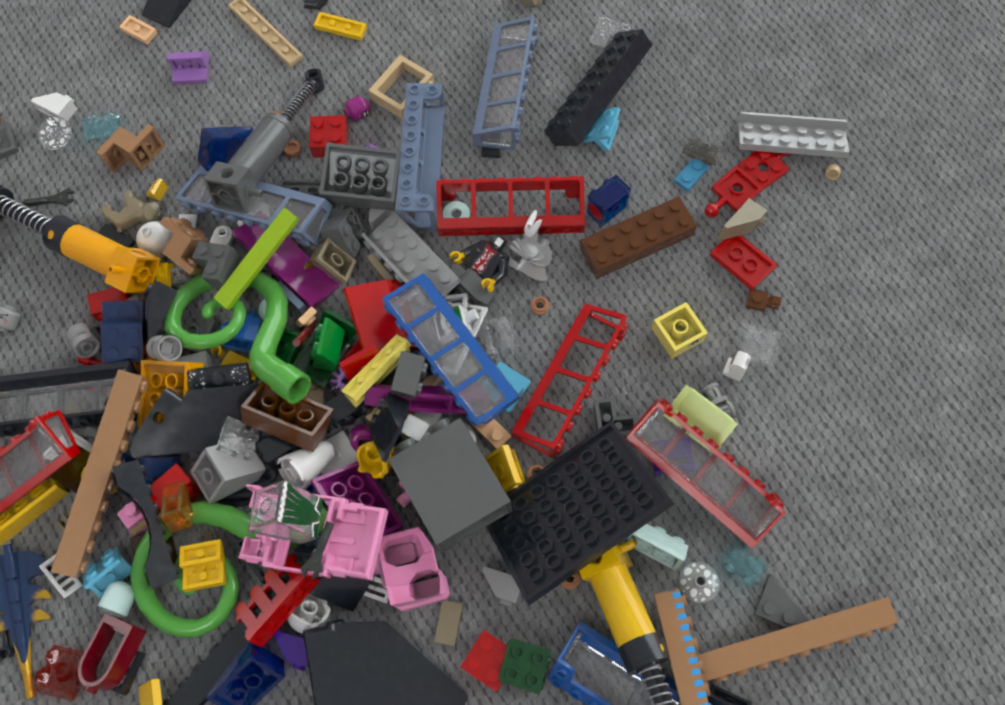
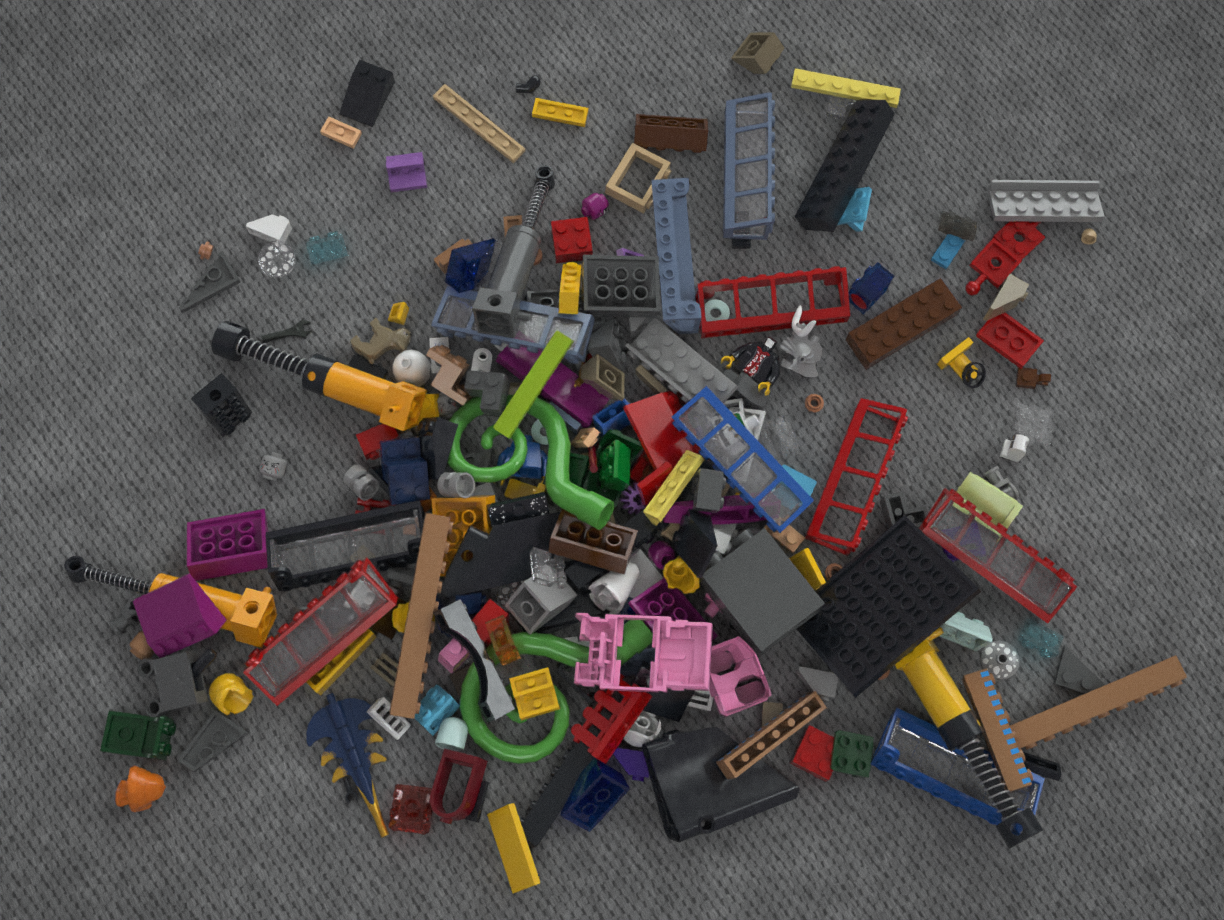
camera: 15 degrees left, 5 degrees up
(127, 147) = (366, 271): medium nougat bracket -> none
(285, 513) = (618, 636): clear slope -> none
(308, 177) = (570, 288): none -> yellow brick
(314, 562) = (654, 677): pearl dark grey piece -> none
(334, 300) = (611, 417): none -> blue brick
(439, 50) = (671, 133): none -> reddish brown slope
(441, 636) = (771, 735): none -> medium nougat brick
(606, 20) = (844, 87): none -> light yellow plate
(679, 330) = (955, 417): light yellow brick -> none
(692, 281) = (962, 365): none -> yellow piece

